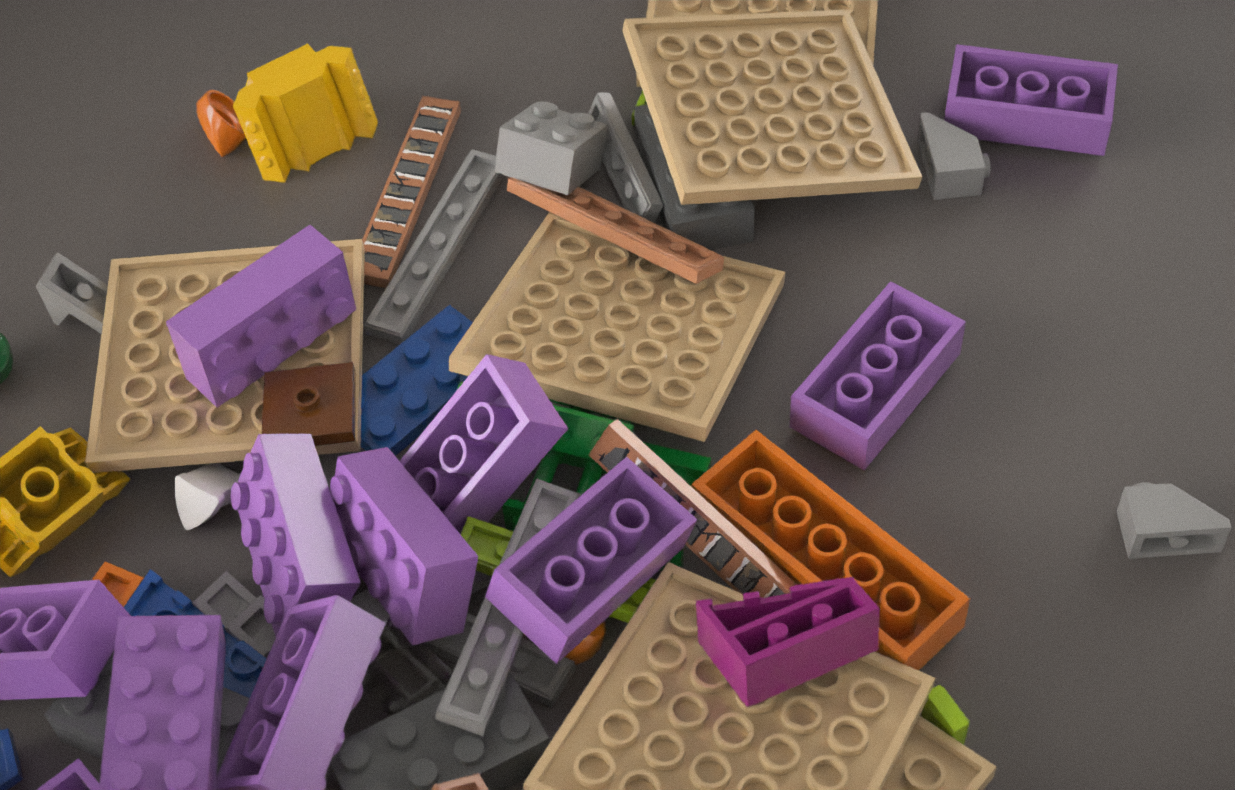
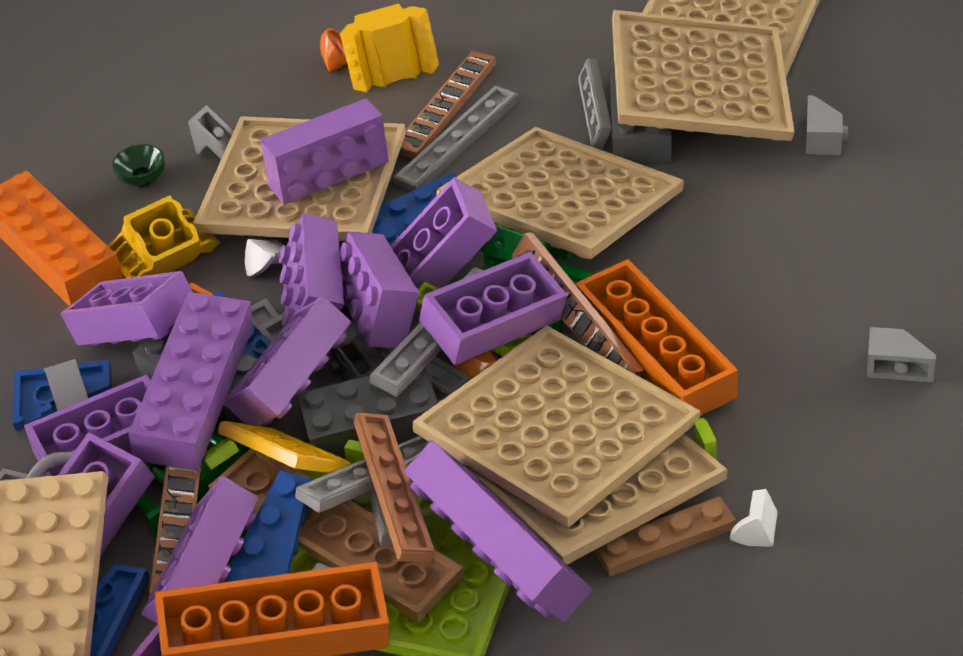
camera: 15 degrees right, 10 degrees down
(311, 402) = (346, 205): reddish brown plate -> none
(551, 147) = (546, 86): light grey brick -> none
(625, 230) = (577, 137): nougat tile -> none
(787, 638) = (607, 368): magenta wedge -> none
(876, 375) = (724, 244): medium lavender brick -> none
(1032, 99) = (891, 97): medium lavender brick -> none

